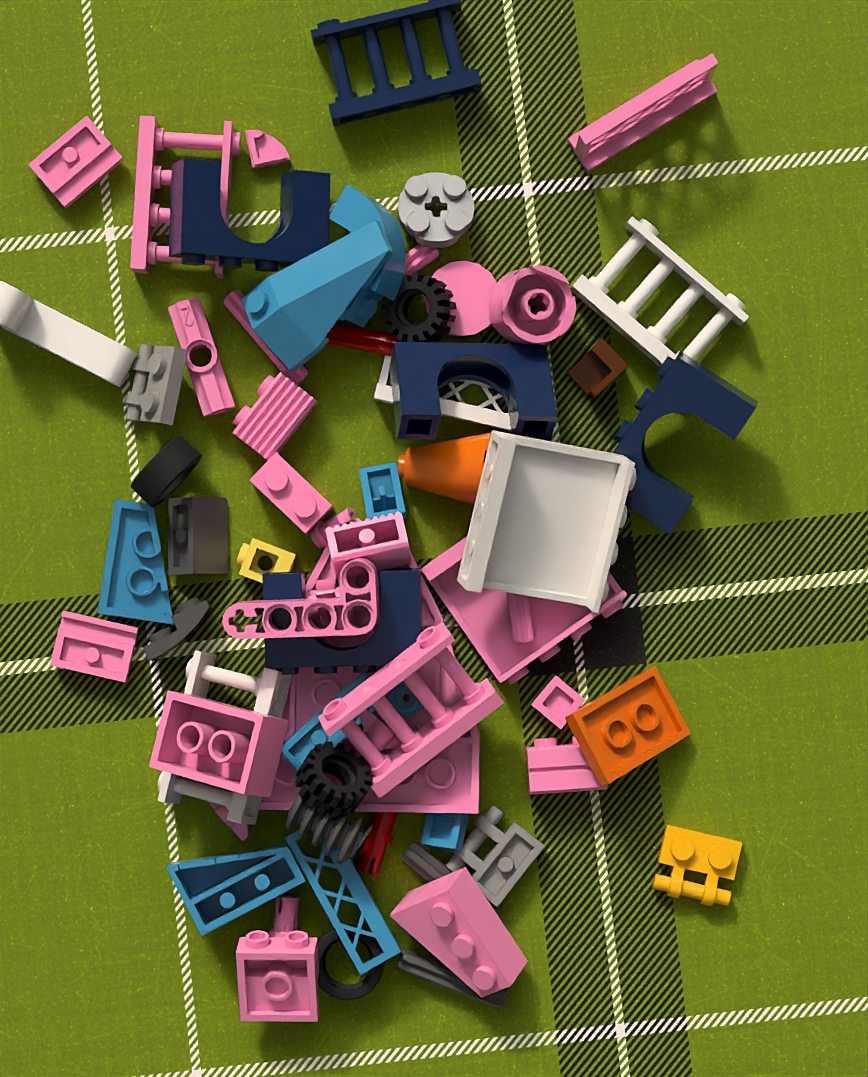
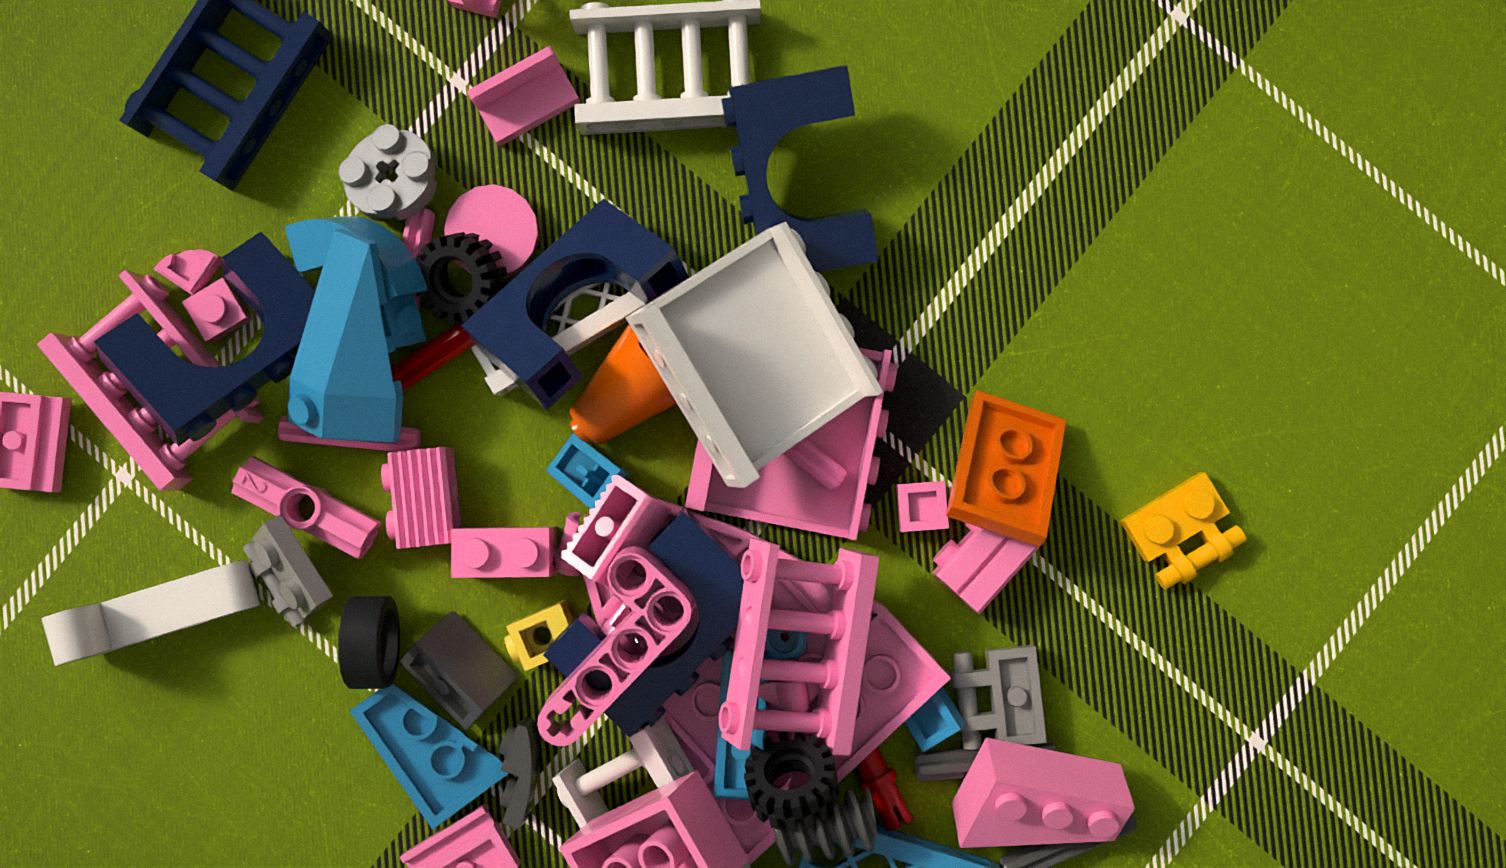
camera: 40 degrees left, 0 degrees up
(258, 190) = (217, 310): none -> bright pink plate
(549, 294) = (567, 152): bright pink brick -> none
(557, 239) = (524, 96): none -> bright pink panel
(597, 369) = (671, 177): reddish brown panel -> none

